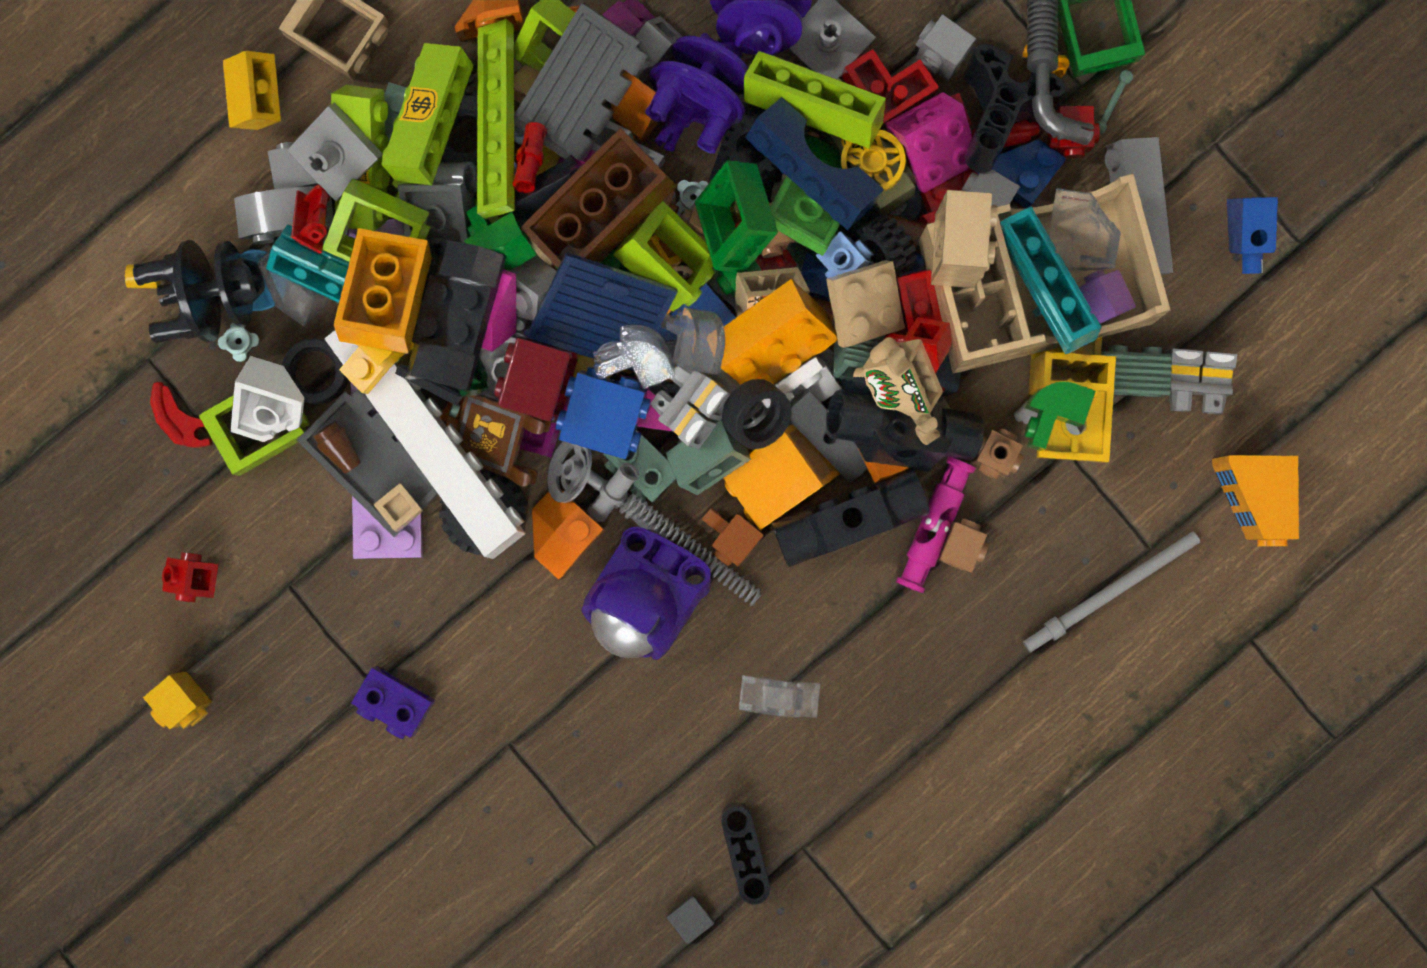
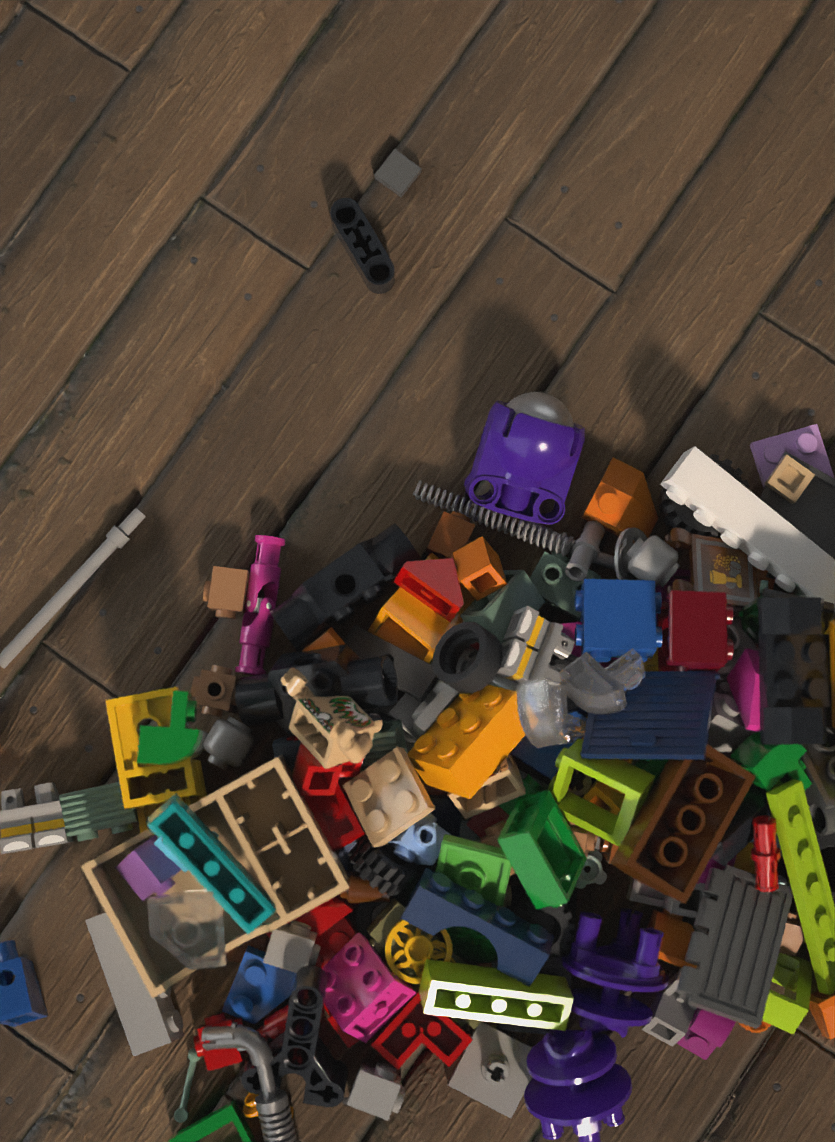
camera: 170 degrees right, 5 degrees down
(392, 702) = (738, 297): dark purple brick -> none
(553, 461) = (653, 560): none -> light grey head
(720, 498) = (479, 568): none -> orange brick
(768, 494) = (433, 584): none -> red slope
(779, 697) = (369, 397): clear brick -> none
(962, 238) = (311, 874): tan brick -> none
(998, 402) = (229, 743): none -> light grey head

